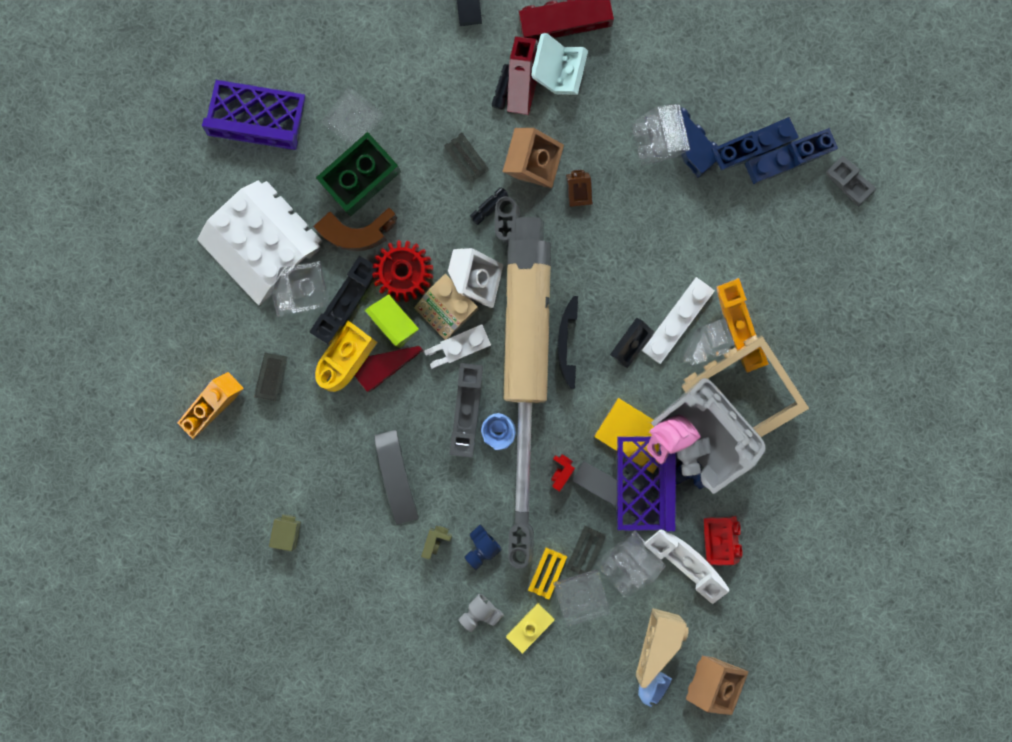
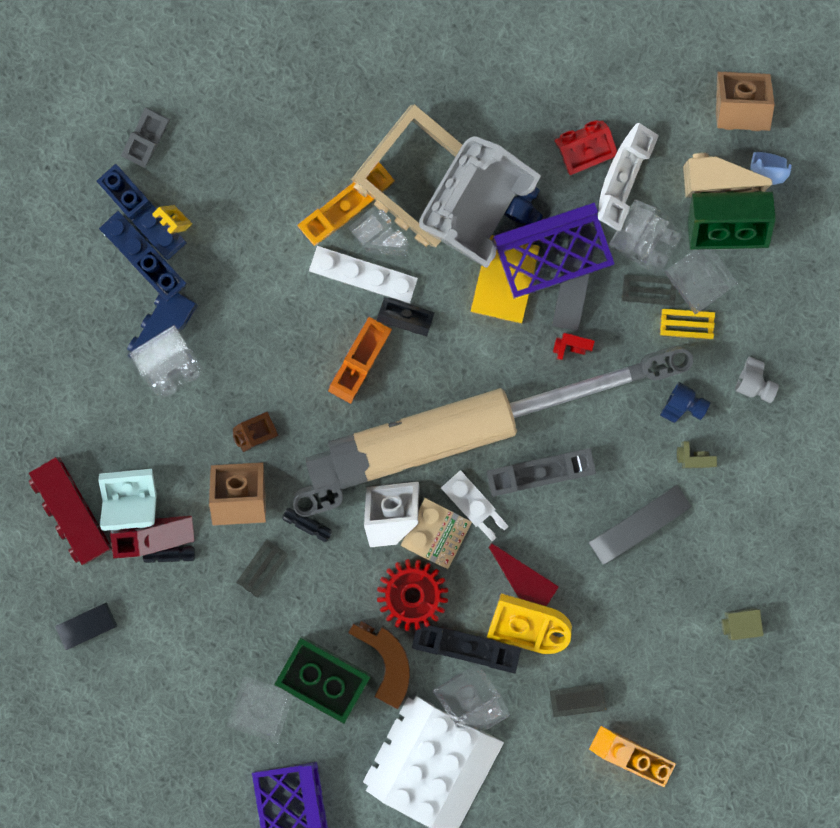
camera: 110 degrees left, 0 degrees up
(392, 321) = (471, 585): lime slope -> none
(498, 423) = (543, 432): light blue hair -> none
(530, 628) = (752, 322): light yellow plate -> none
(568, 371) = (460, 375): black slope -> none
(608, 293) = (359, 360): none -> orange slope
(621, 641) = (731, 220): none -> dark green brick
(673, 436) = (494, 239): bright pink piece -> none
(691, 454) = (503, 215): light grey piece -> none
(779, 176) = (177, 222): none -> yellow tile

